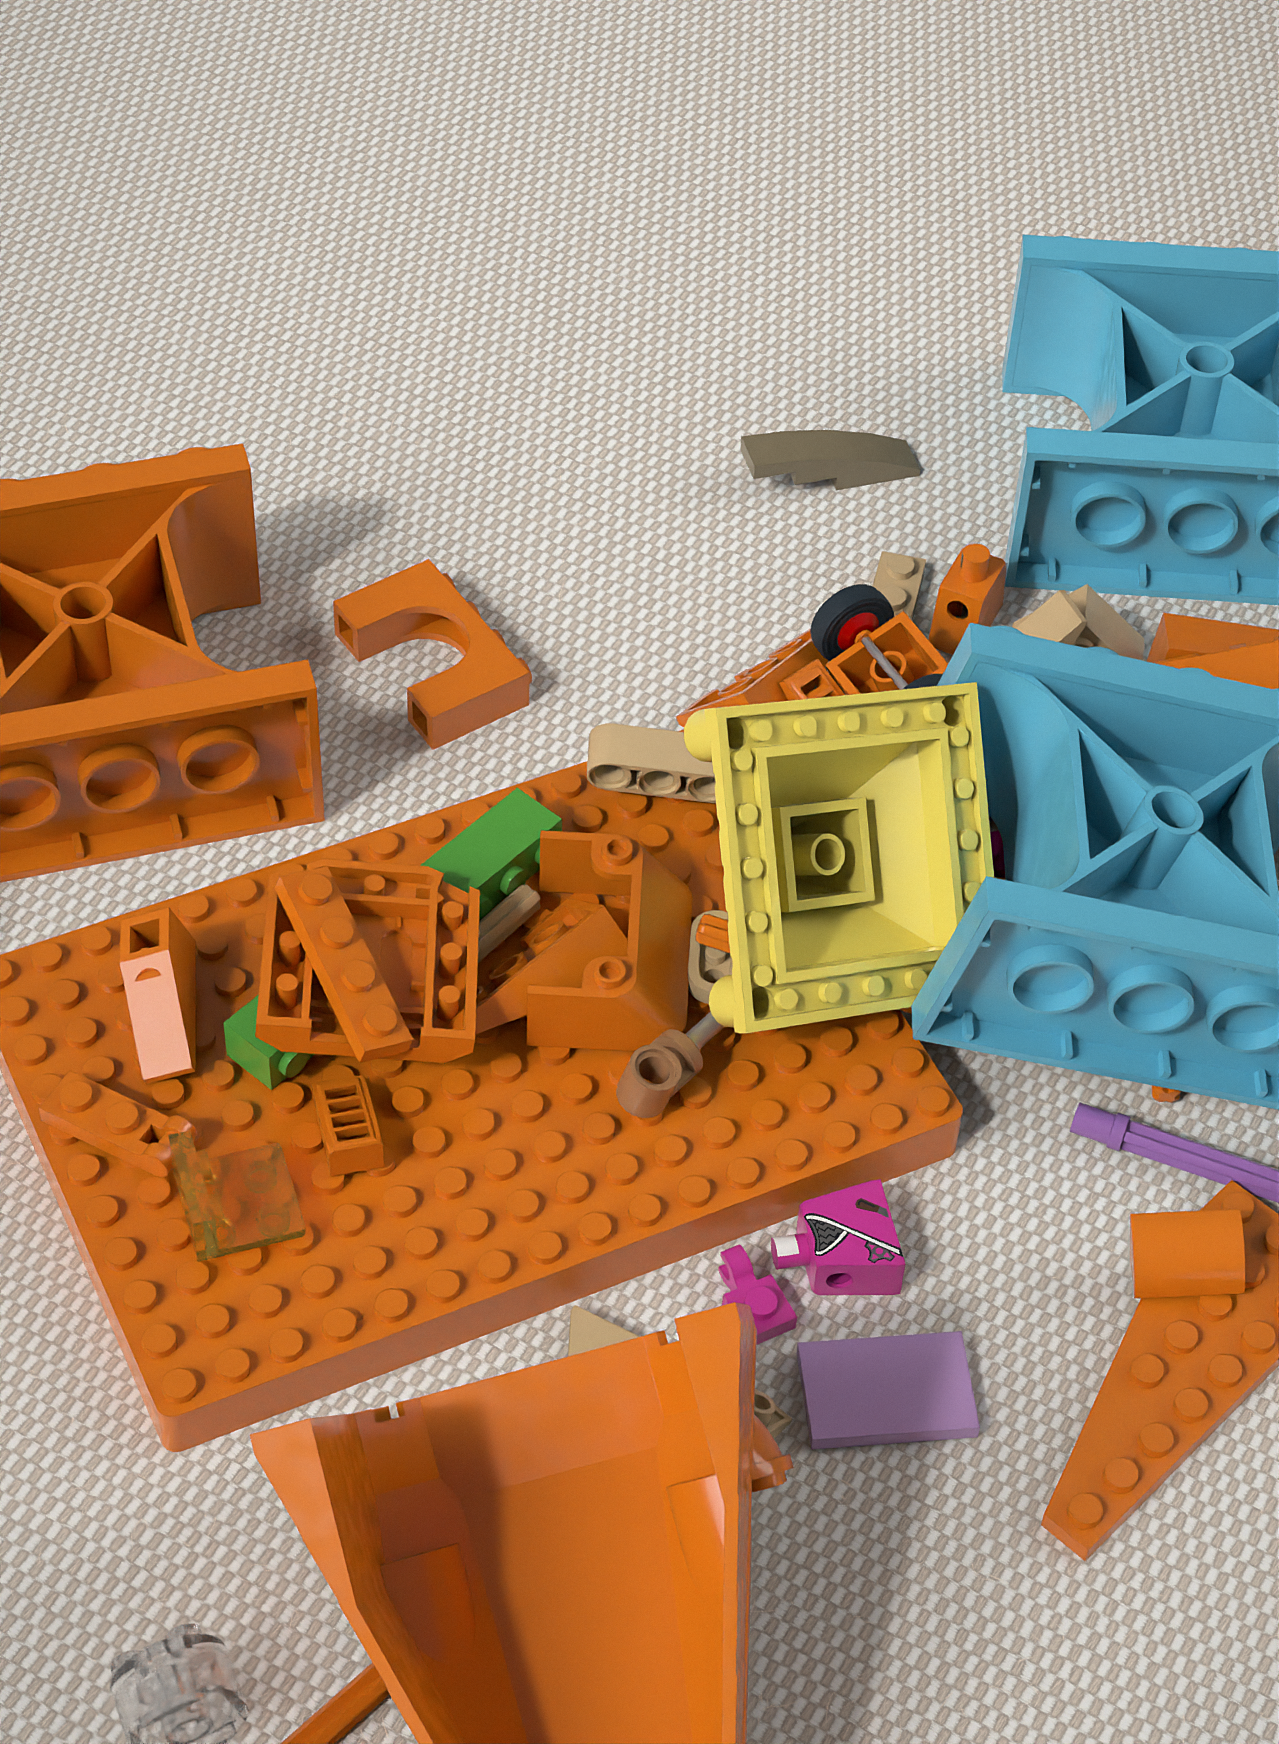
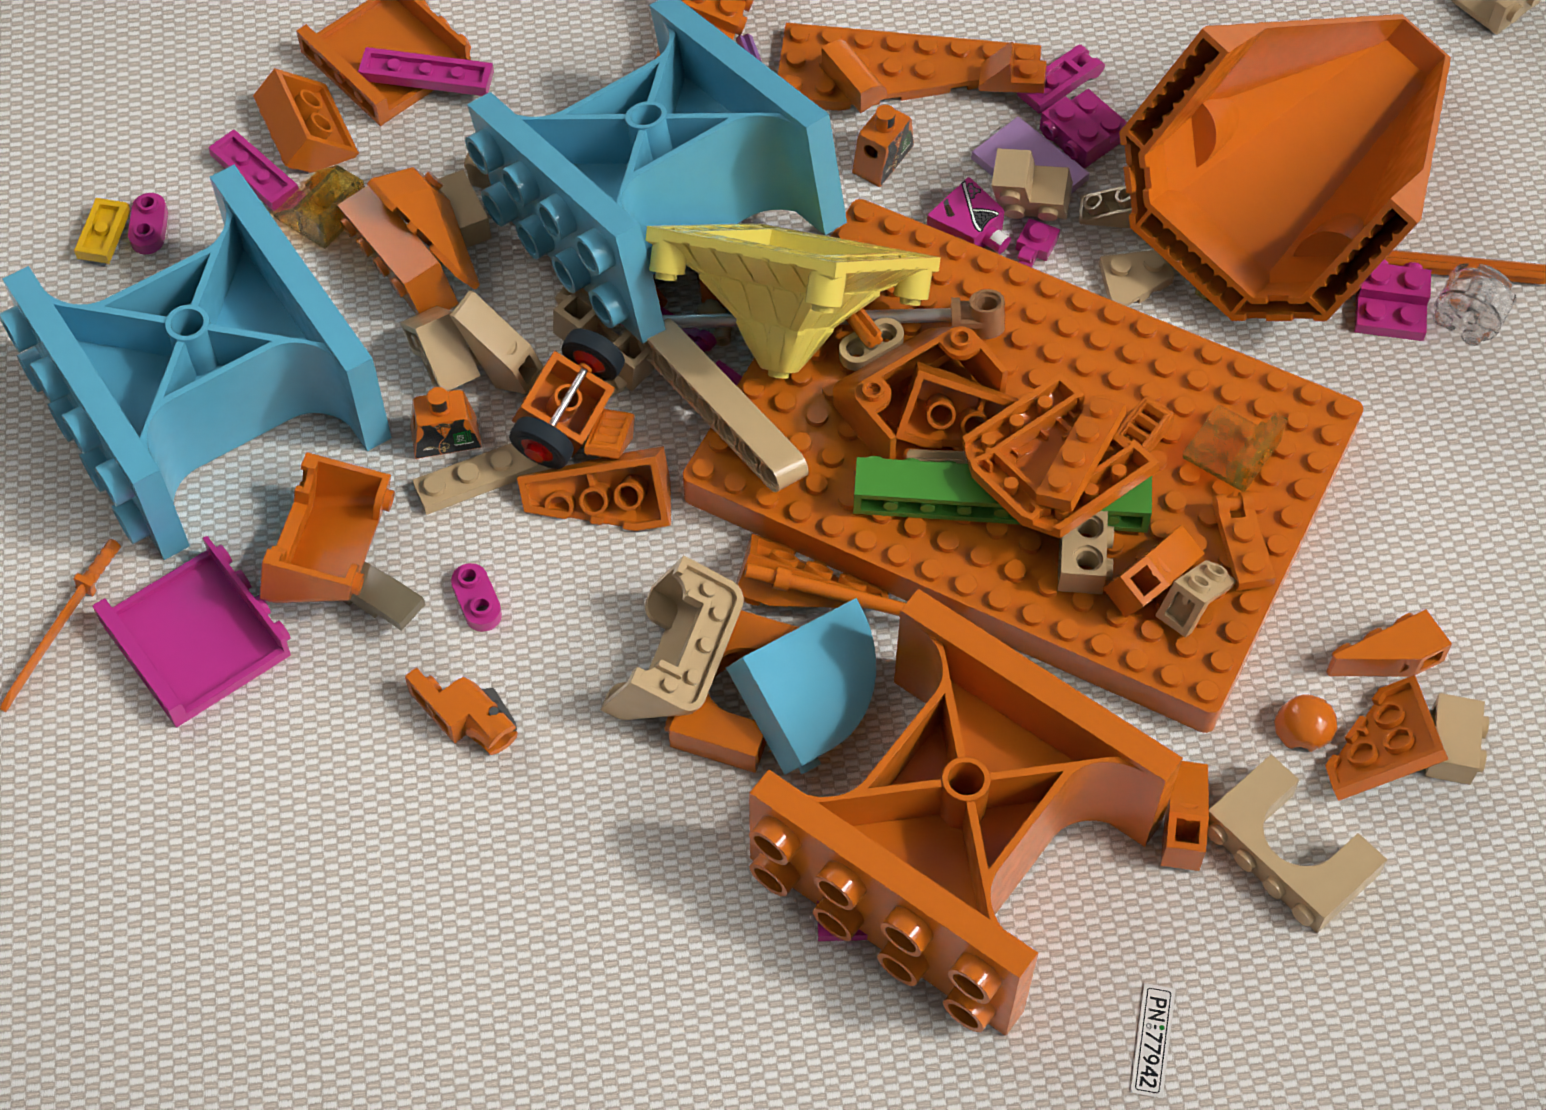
camera: 125 degrees left, 10 degrees up
(100, 1026) = (1192, 594): none -> tan bracket
(232, 946) = (1092, 552): none -> tan brick
(291, 1643) = (1394, 302): none -> dark pink plate
(370, 673) = (810, 685): none -> medium azure brick
(477, 571) = (698, 619): none -> tan windscreen
(492, 714) = (784, 579): none -> orange bar
(511, 750) = (773, 555): none -> orange wedge
(616, 455) = (465, 710): none -> orange plate
(738, 541) = (476, 594): none -> dark pink plate
(833, 1309) = (1028, 188): none -> tan brick
(888, 334) = (196, 634): none -> dark pink panel
(892, 432) = (326, 533): none -> orange windscreen
(898, 1497) = (1082, 127): none -> dark pink plate
(973, 253) = (85, 585): none -> orange sword
(1008, 1530) = (1064, 77): none -> dark pink plate
(1040, 1212) = (888, 135): none -> orange torso
(1044, 1452) = (1005, 74): none -> orange slope

